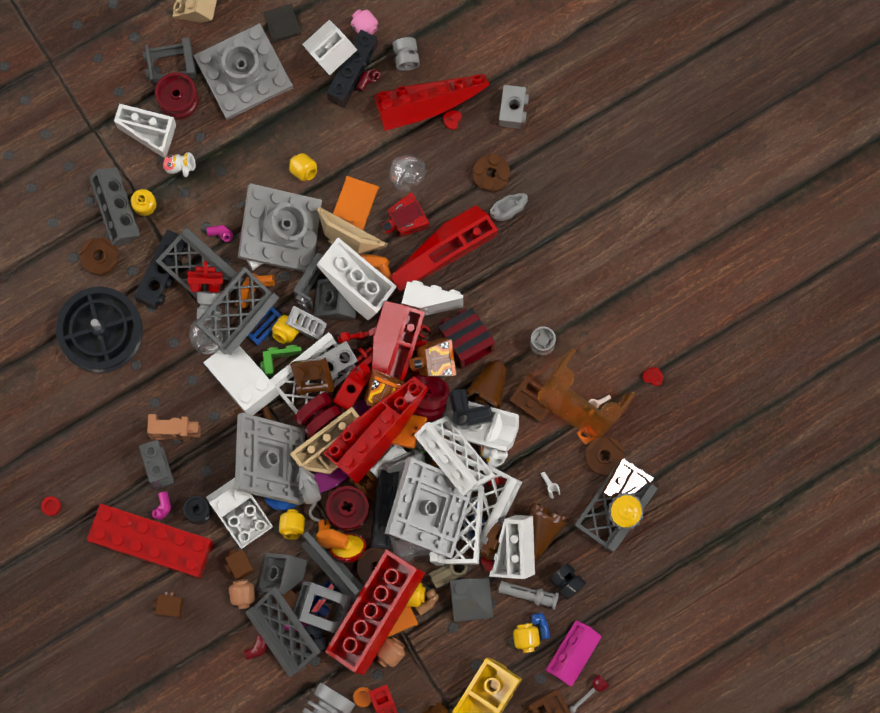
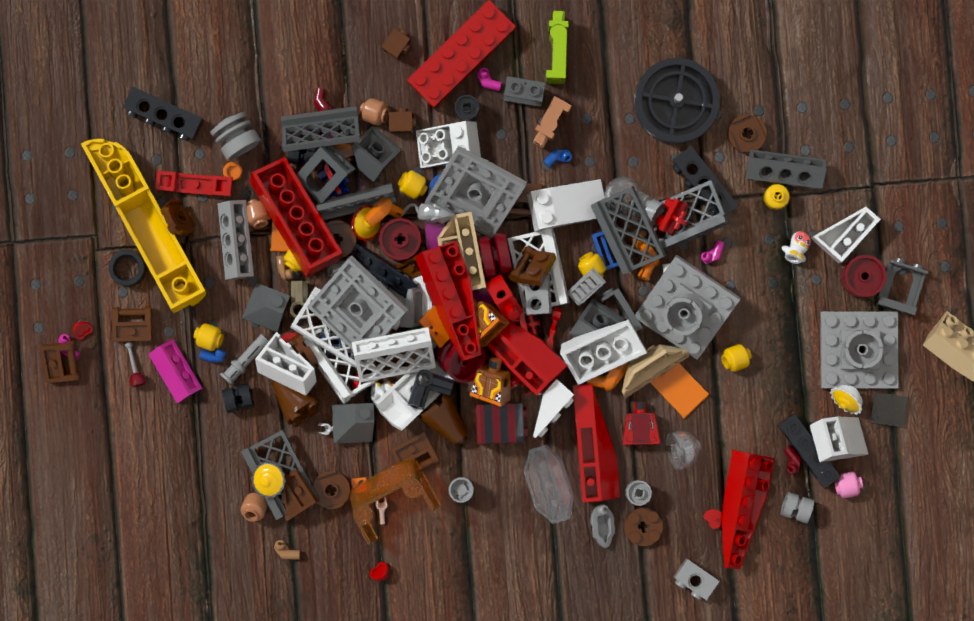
camera: 120 degrees right, 10 degrees up
(101, 455) = (558, 38): none -> lime hips
(200, 410) = (558, 155): none -> blue arm
(274, 352) = (567, 234): bright green bracket -> none
(290, 57) = (847, 398): none -> piece
(424, 659) = (235, 239): none -> light grey brick
(464, 190) = (638, 492): none -> light grey wheel
(498, 268) = (548, 484): none -> clear wedge
(534, 466) = (353, 423): none -> dark grey slope
(657, 515) = (254, 507): none -> nougat head
(681, 469) = (284, 552): none -> medium nougat arm

